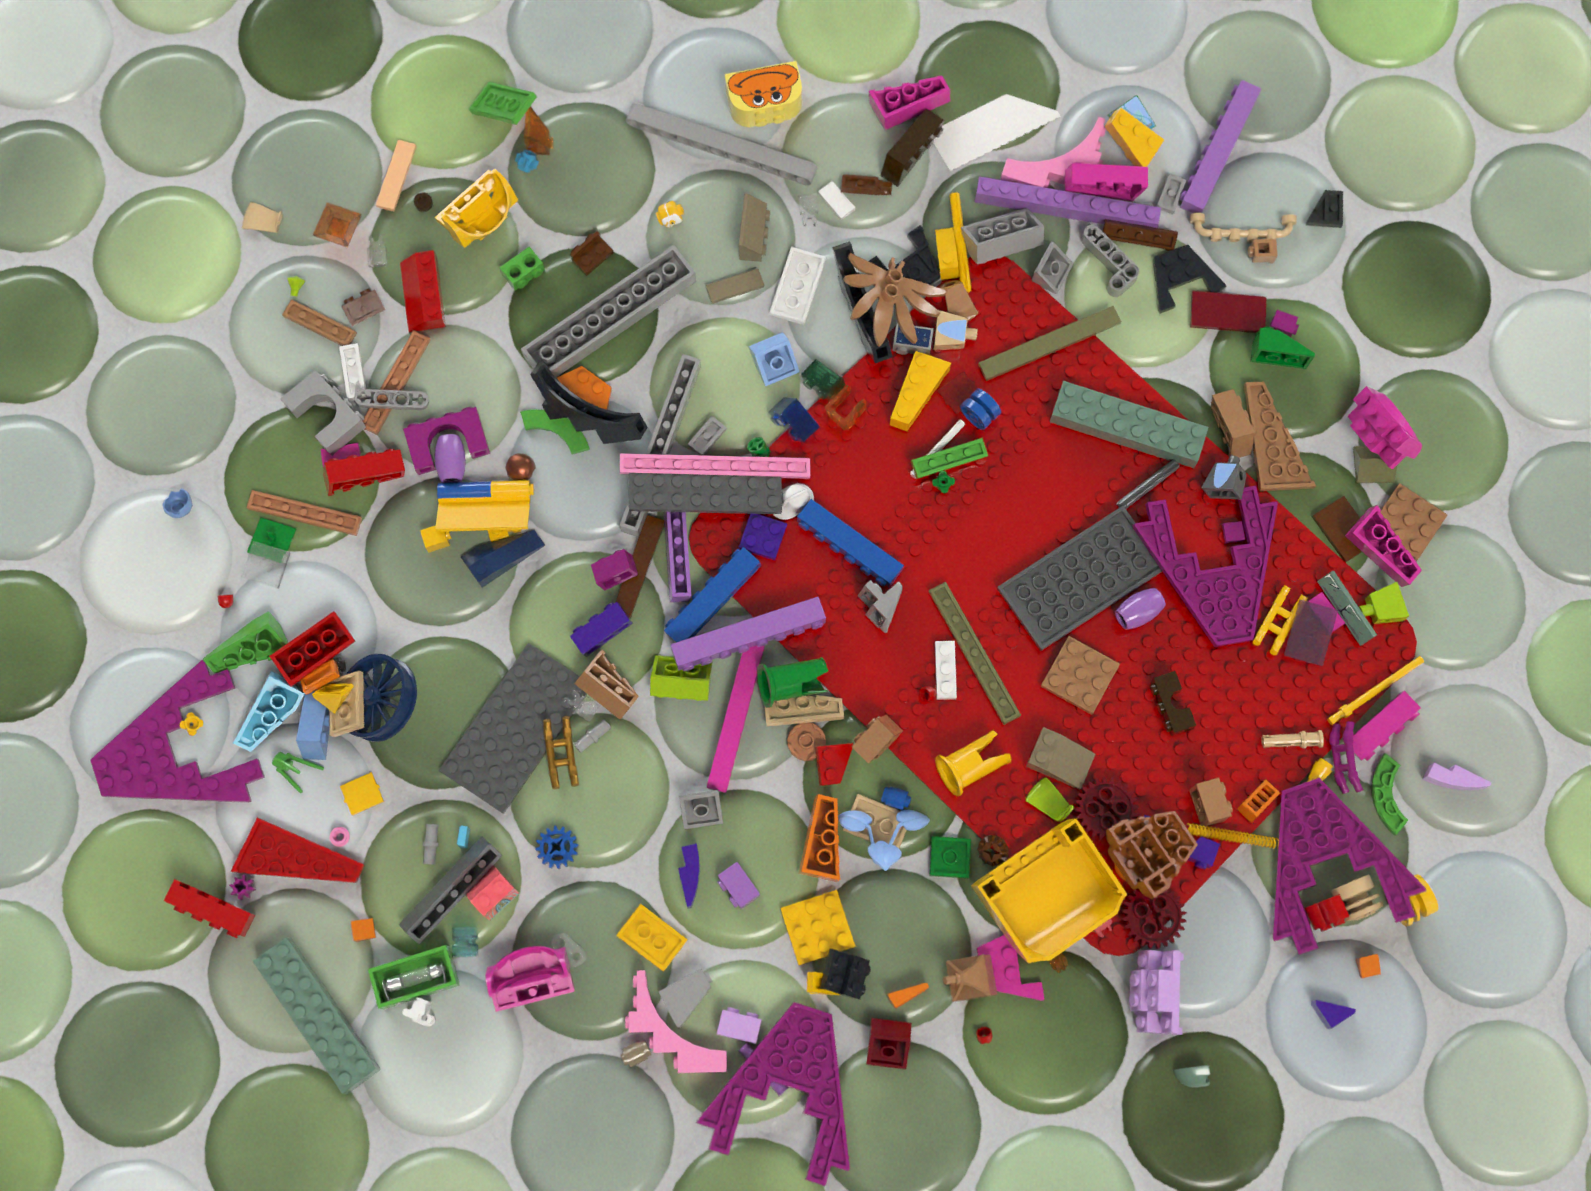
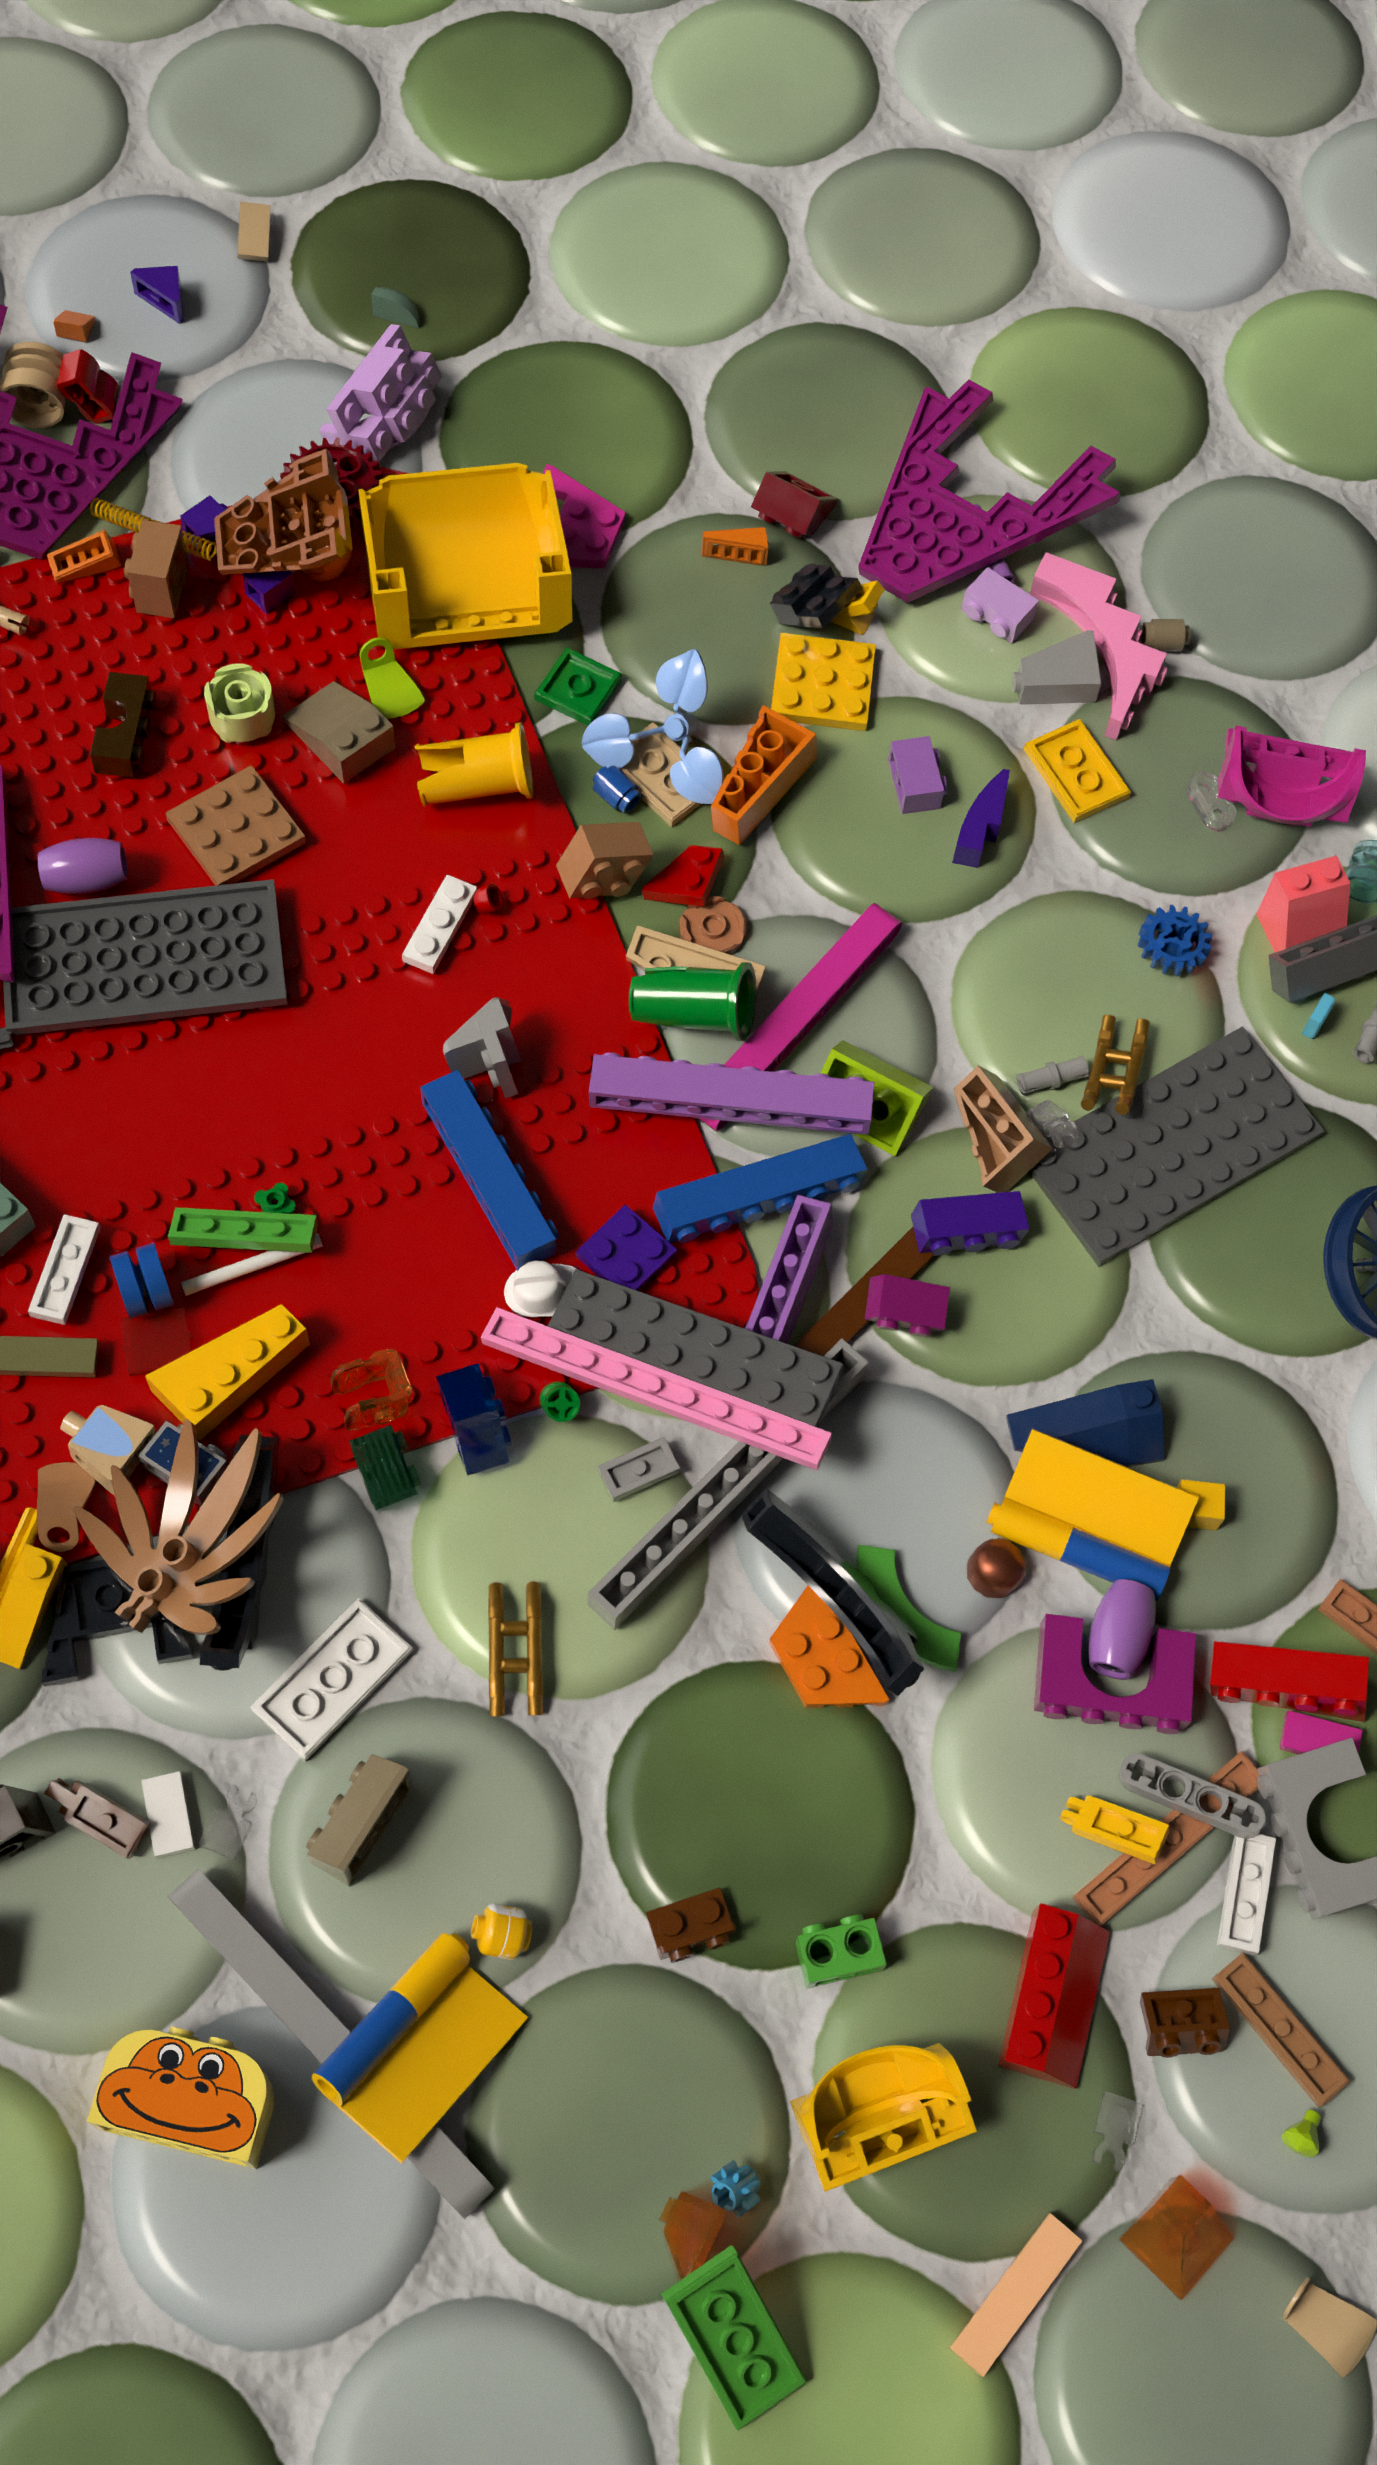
camera: 160 degrees left, 10 degrees down
(420, 371) = (1116, 1827): none -> yellow hinge
(423, 202) = (981, 2204): dark brown tile -> none
(611, 312) = (713, 1771): light grey brick -> none
(680, 154) = (419, 2048): none -> yellow door
(701, 809) = (924, 903): light grey slope -> none
(721, 342) = (499, 1665): none -> pearl gold piece
(735, 286) = (448, 1732): dark tan tile -> none
(774, 359) = (448, 1554): light blue slope -> none
(970, 978) = (637, 517): medium nougat piece -> none
(974, 653) = (380, 931): olive tile -> none
(984, 1031) = (648, 457): red hinge -> none
(999, 846) = (519, 672): reddish brown gear -> none
(1021, 403) = (64, 1269): none -> white plate
(1114, 732) = (240, 703): none -> yellowish green brick
(1118, 795) = (287, 635): dark red gear -> none
(1308, 1087) = (253, 231): none -> tan slope

